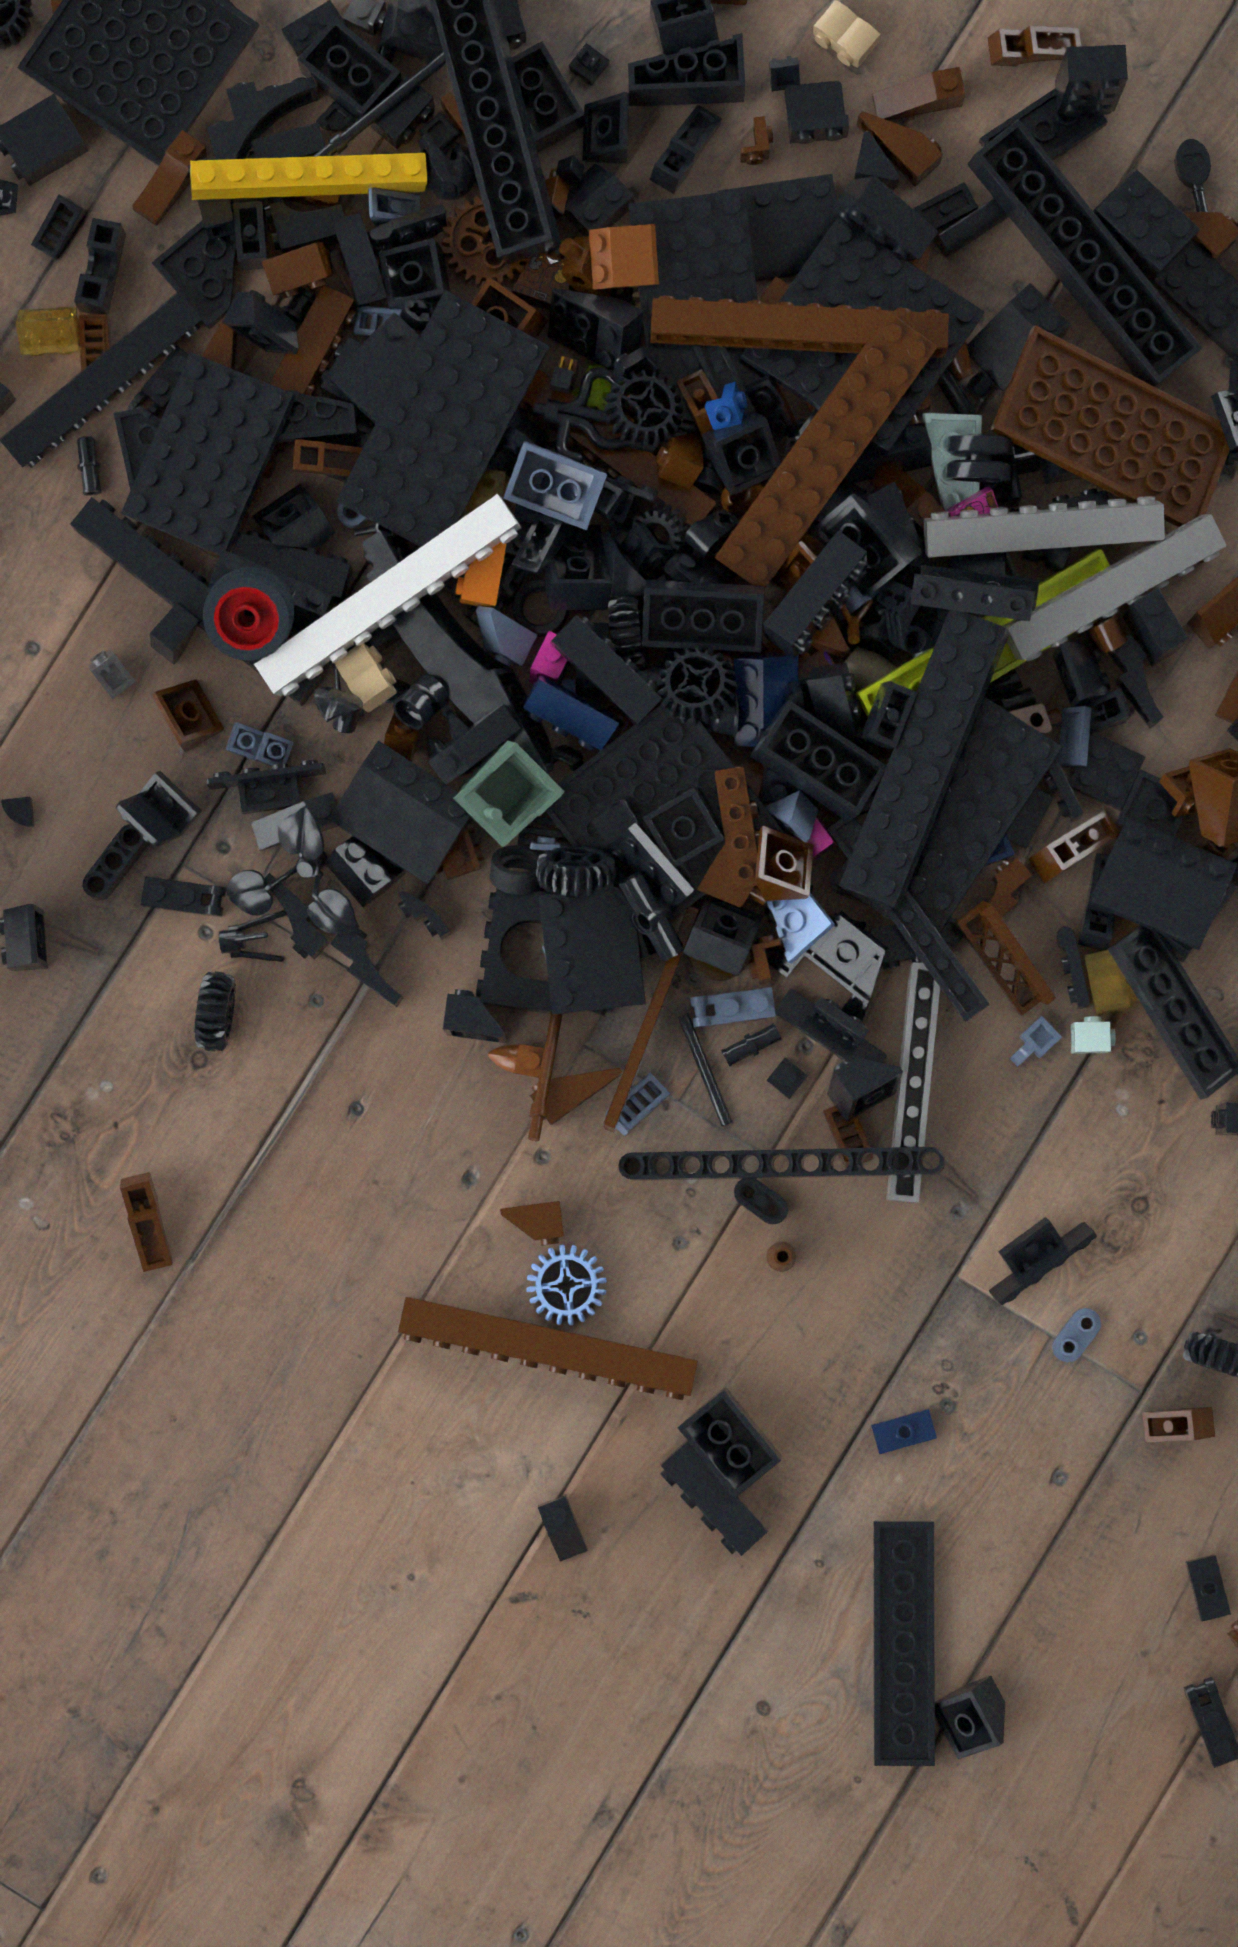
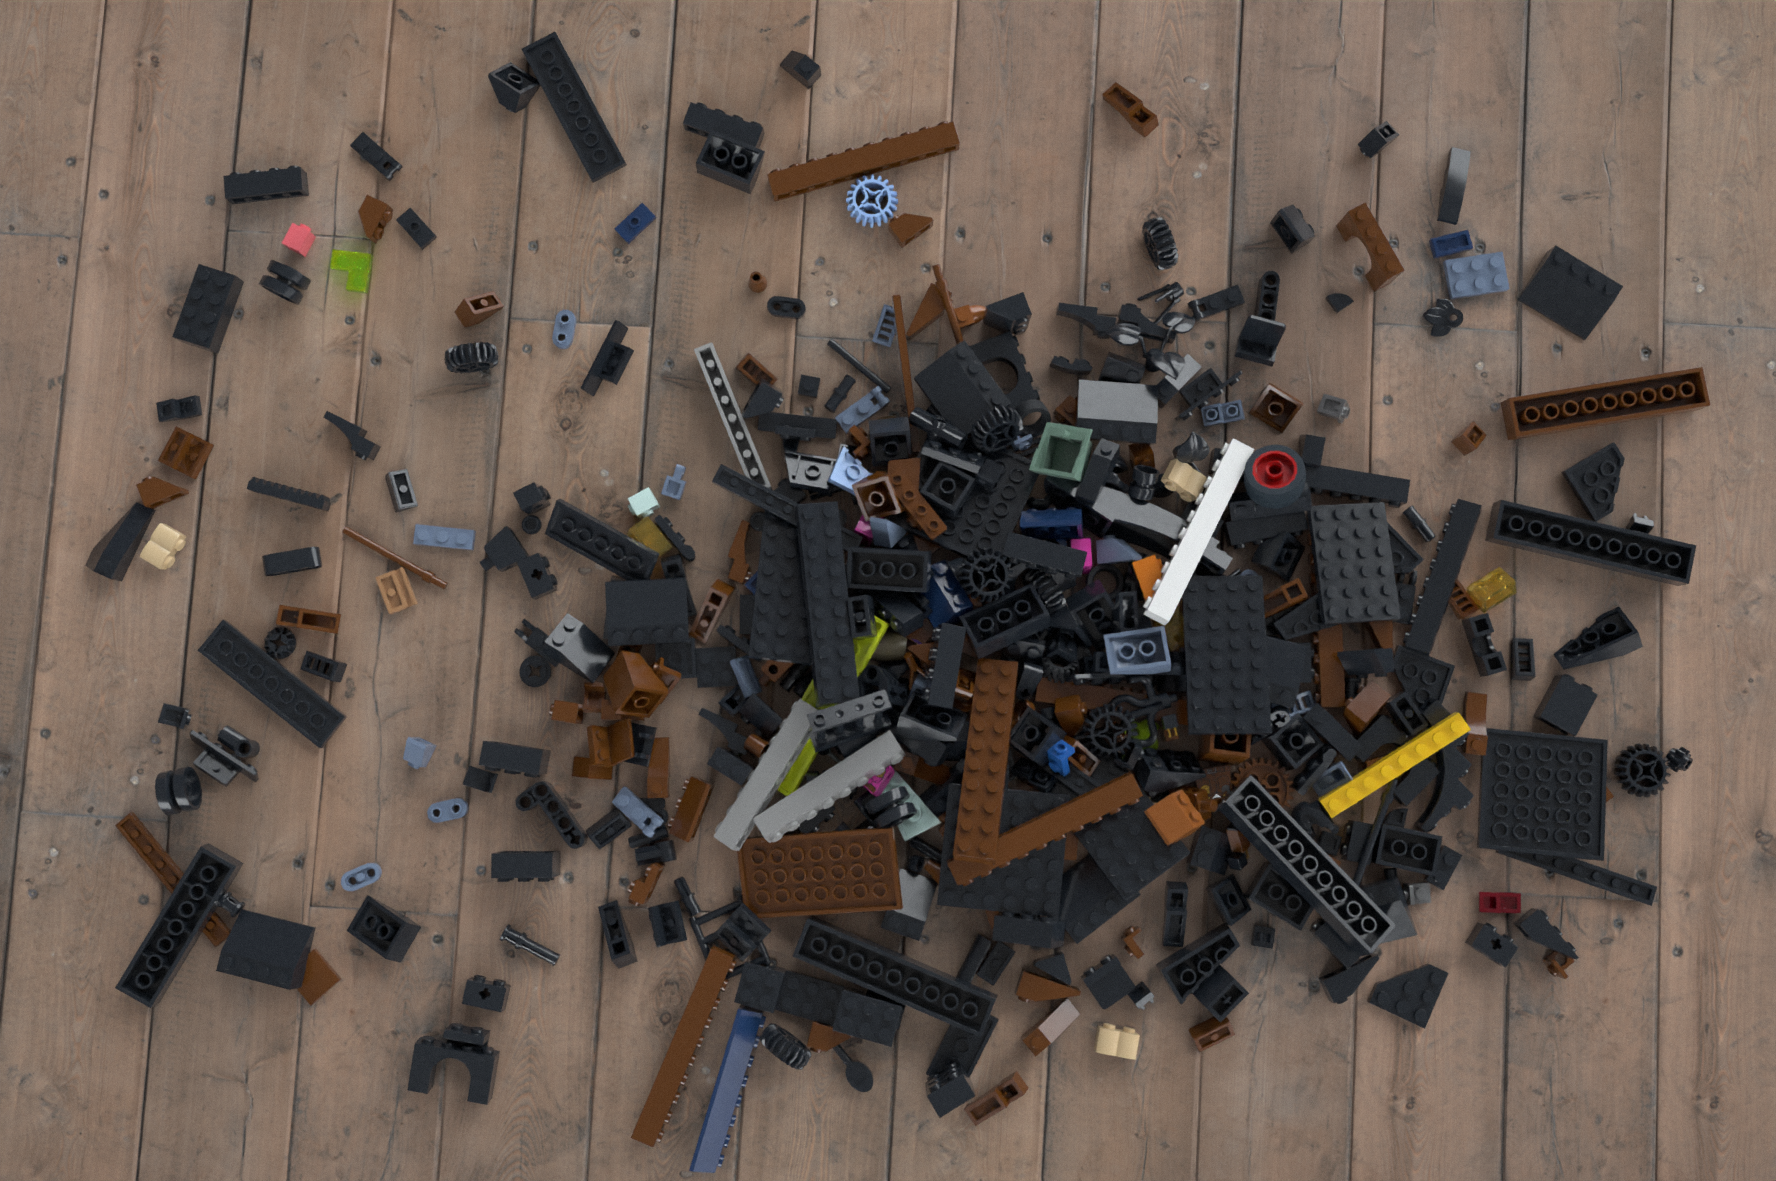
camera: 150 degrees right, 0 degrees up
(766, 1163) = (780, 337): black beam -> none
(1013, 951) = (714, 524): reddish brown fence -> none

